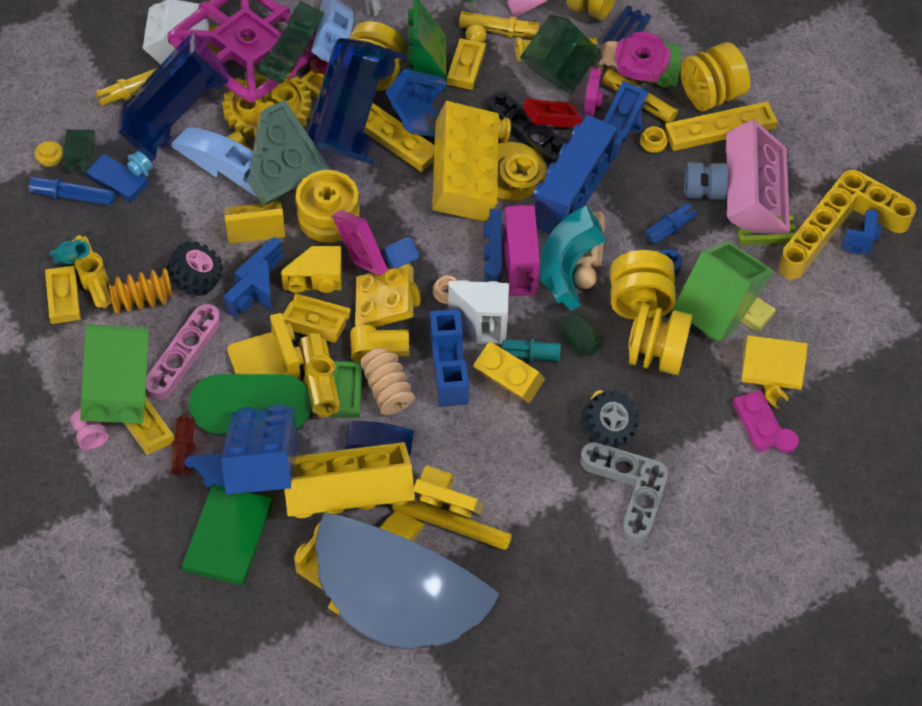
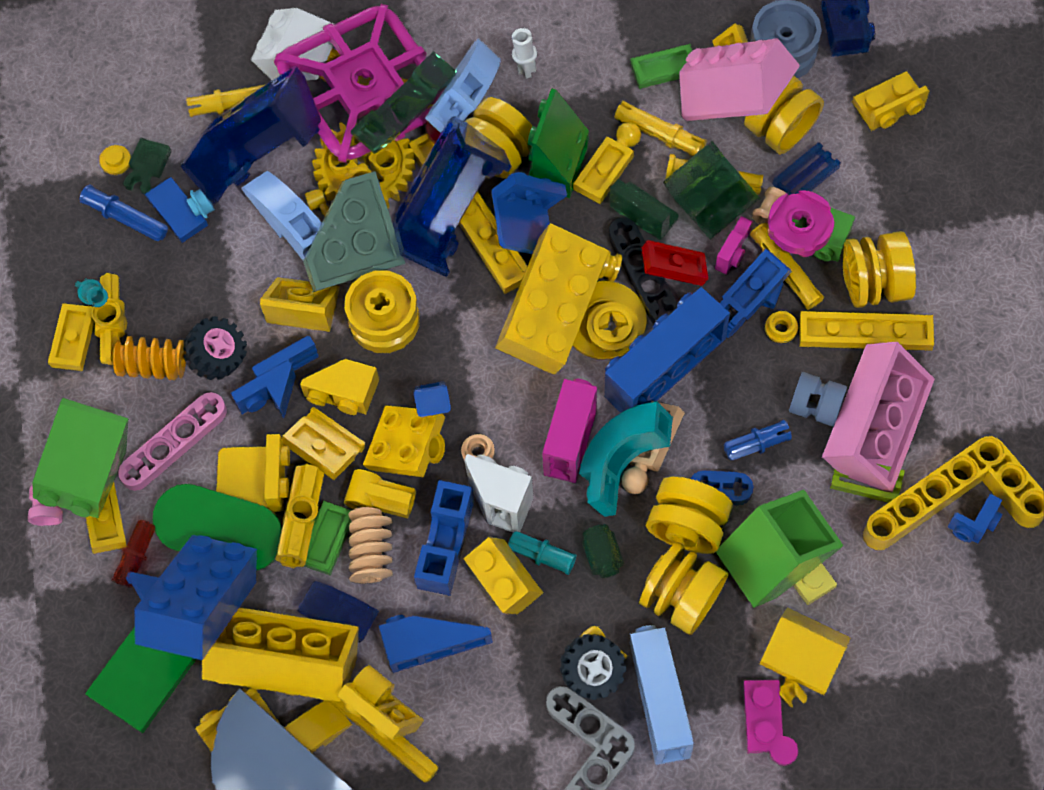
camera: 25 degrees right, 10 degrees up
(359, 242) = (395, 371): dark pink plate -> none
(463, 439) = (421, 640): none -> blue slope
(493, 250) = (541, 419): blue plate -> none
(509, 80) = (642, 208): none -> clear green bracket
(676, 426) = (661, 695): none -> light blue slope

